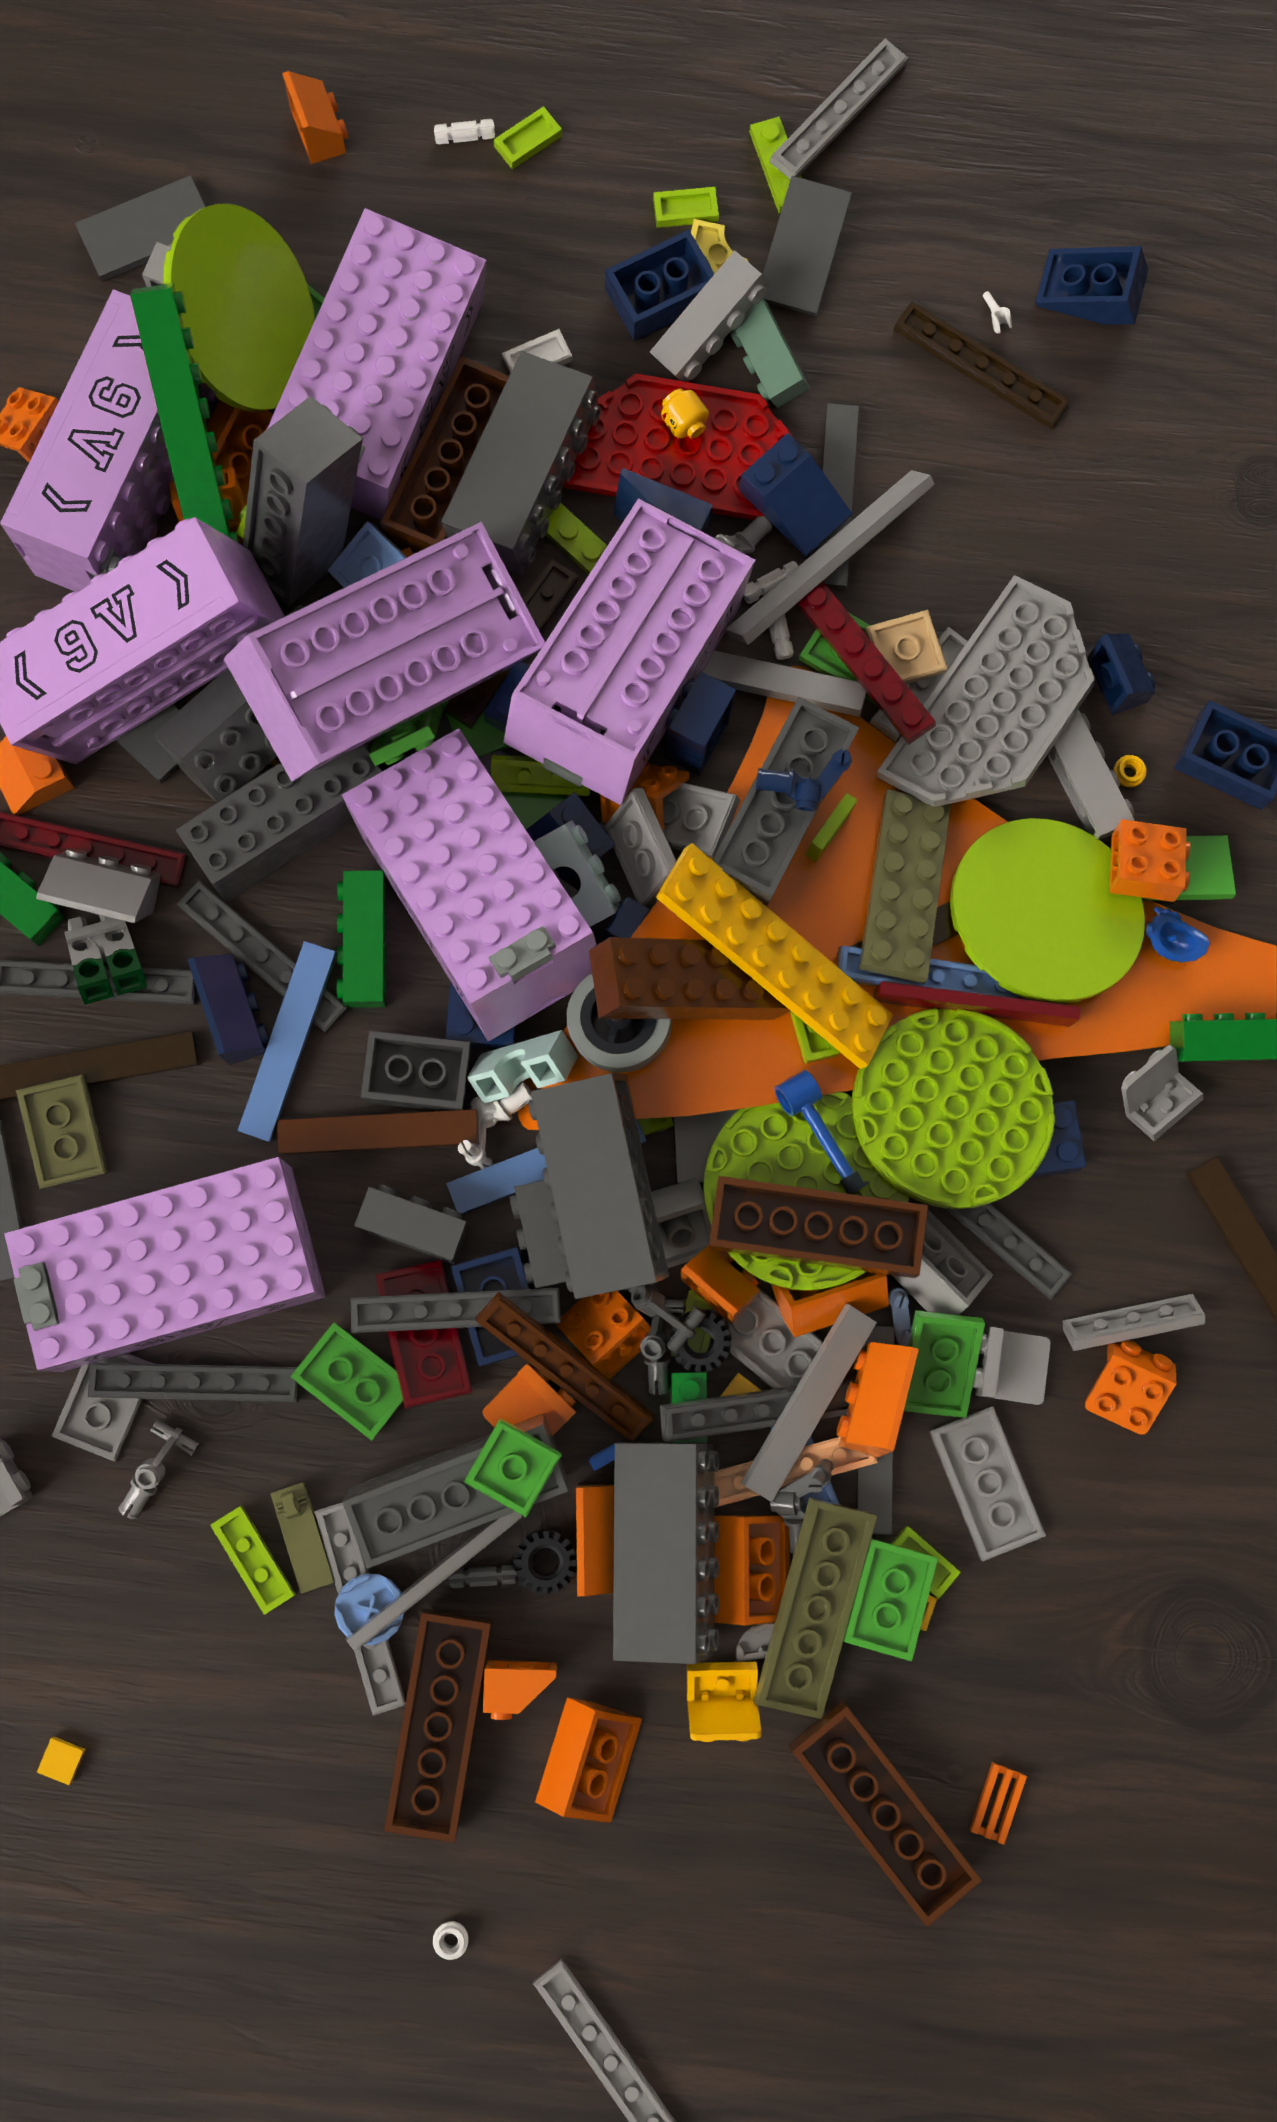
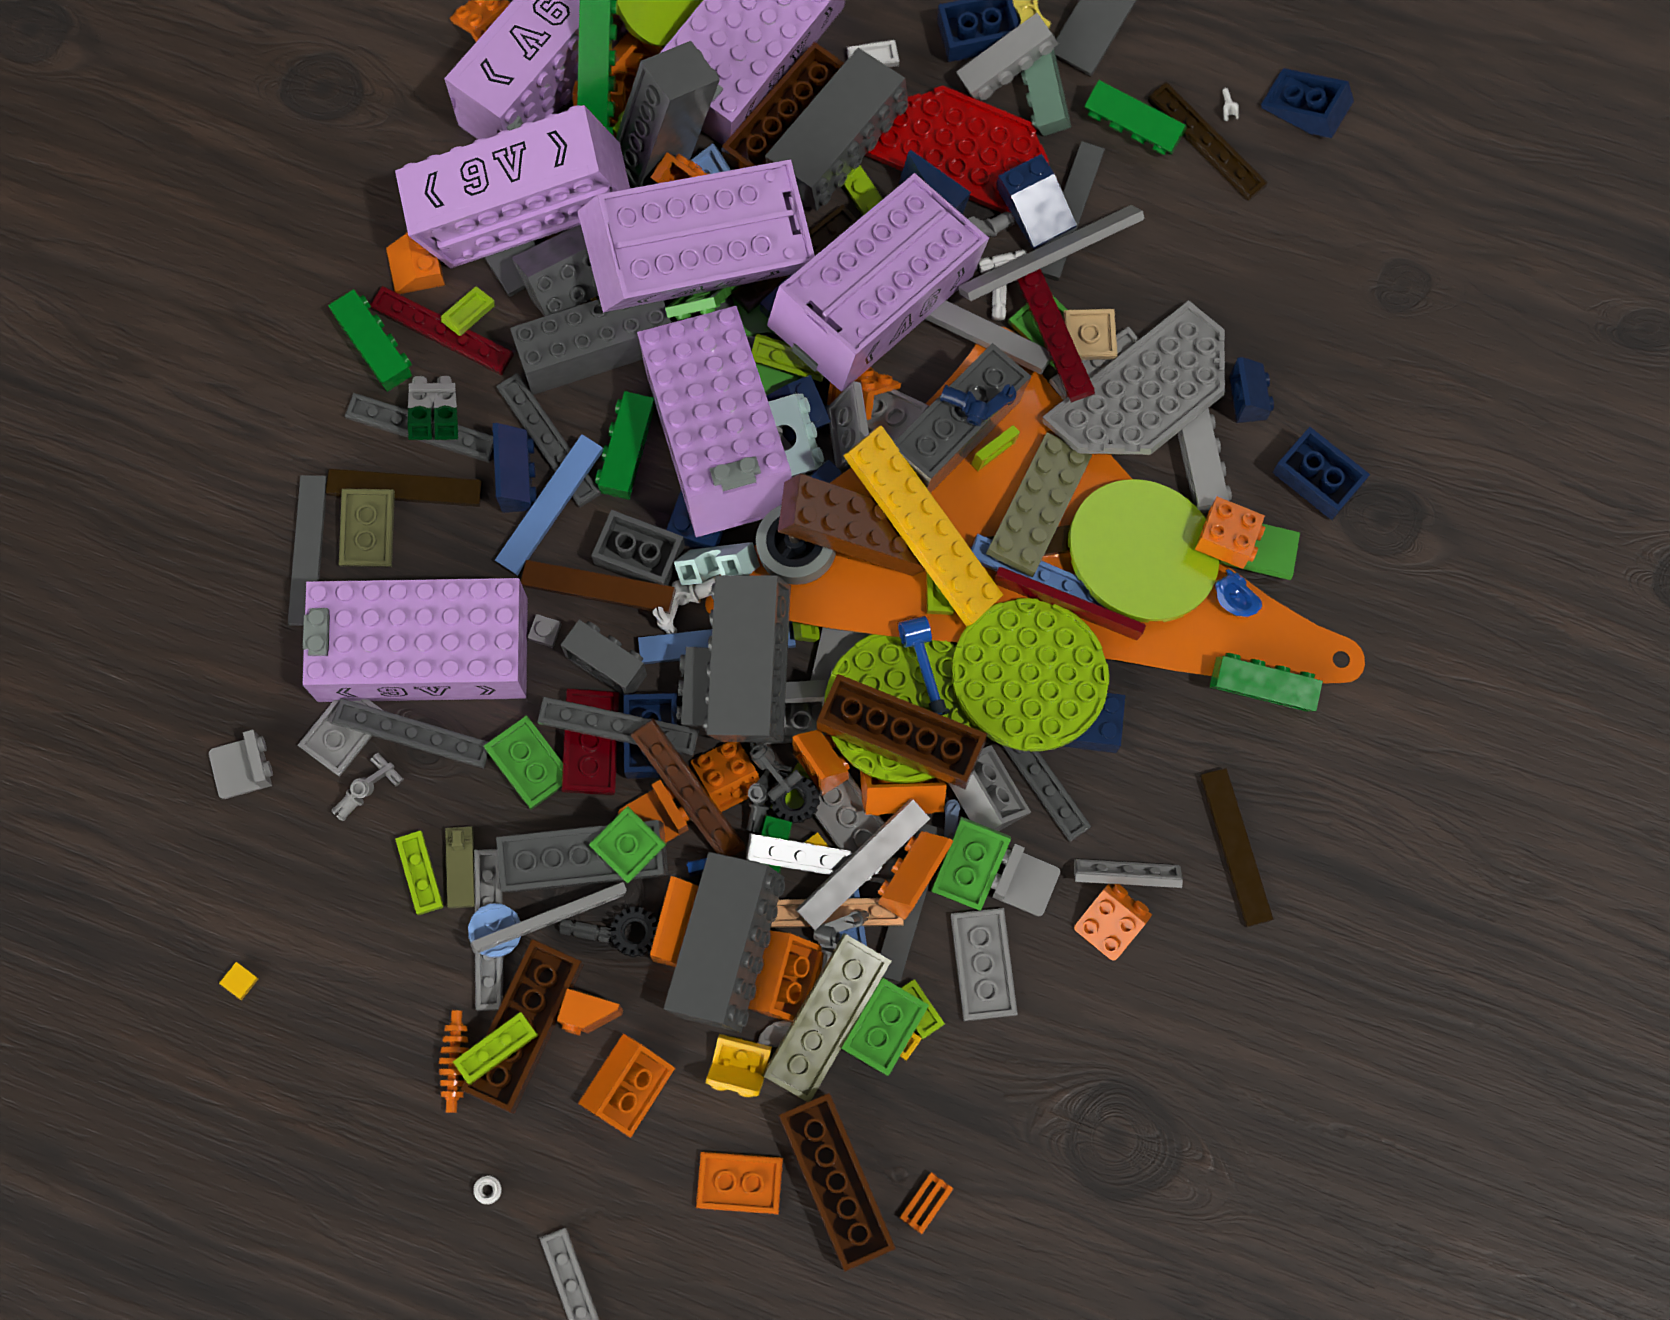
camera: 20 degrees right, 5 degrees down
(100, 886) = (444, 357): light grey slope -> none
(113, 816) = (467, 311): none -> lime tile
(325, 1205) = (544, 631): none -> light grey plate
(333, 569) = (676, 168): none -> orange bracket
(363, 1790) = (454, 1051): none -> orange piece
(414, 1769) = (495, 1048): none -> lime plate
(684, 413) = (969, 122): yellow head -> none
(699, 722) = (917, 348): dark blue brick -> none
(761, 1842) = (739, 1183): none -> orange tile
(888, 357) = (1134, 117): none -> green brick
(1136, 765) = (1241, 460): yellow plate -> none
(1158, 1094) = (1192, 707): light grey bracket -> none

